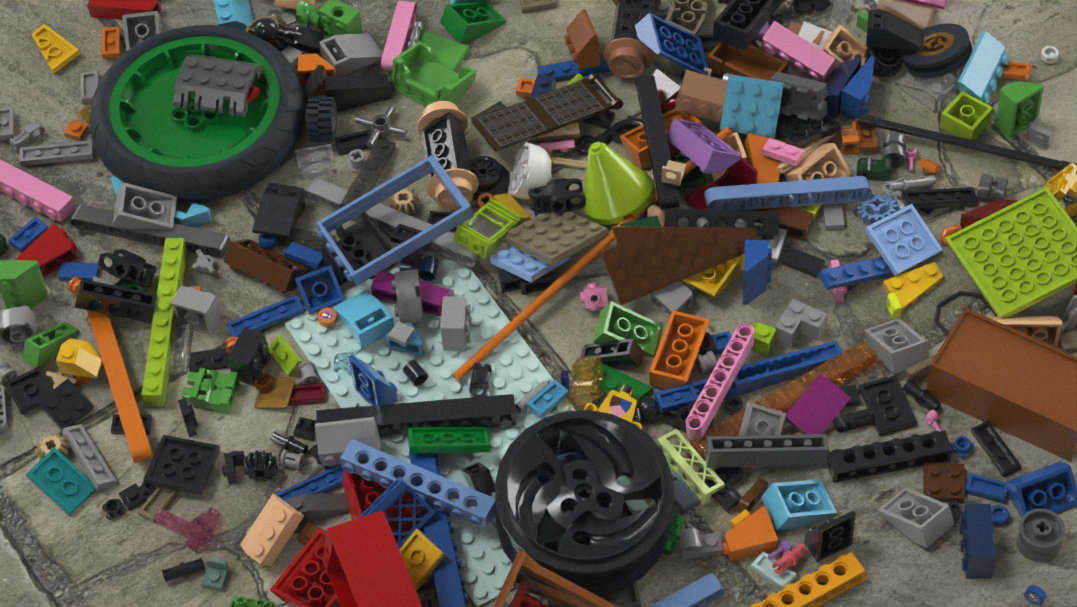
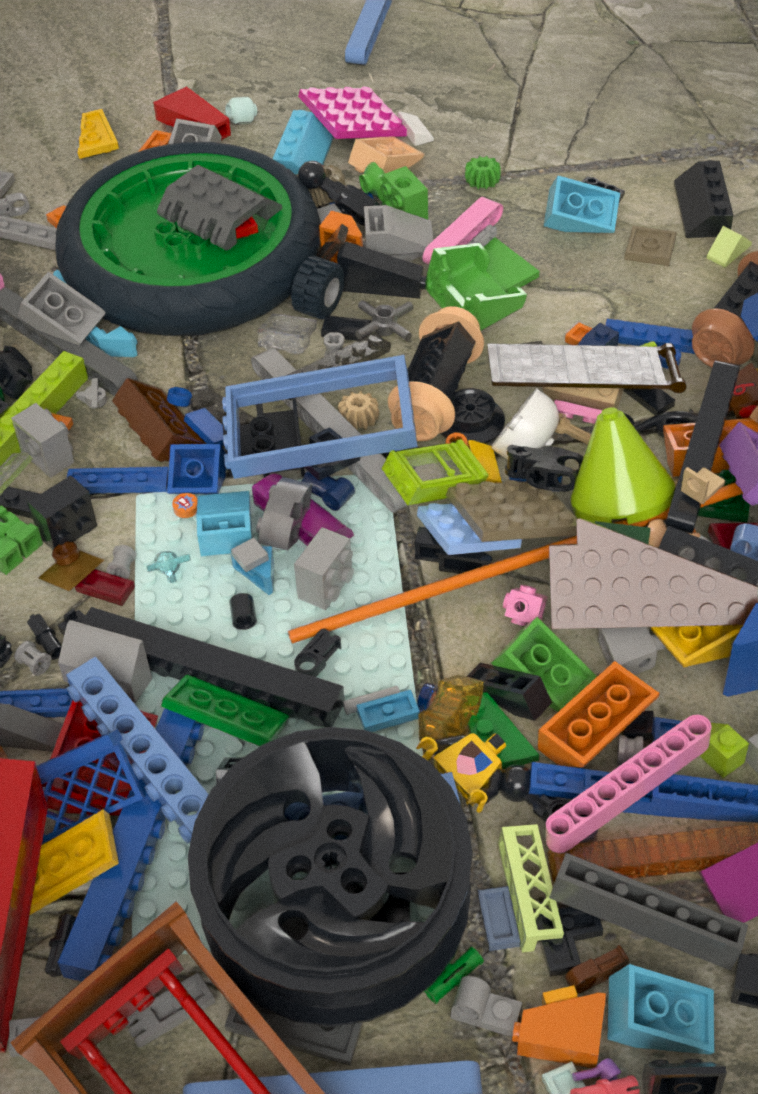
camera: 25 degrees right, 5 degrees down
(279, 210) = (210, 367): black slope -> none
(285, 355) = (109, 530): lime plate -> none
(372, 383) = (179, 599): blue slope -> none
(470, 20) = (557, 245): green slope -> none
(582, 41) = (673, 306): dark orange slope -> none
(734, 400) = (641, 818): black bush -> none
(761, 421) = (661, 865): light grey plate -> none

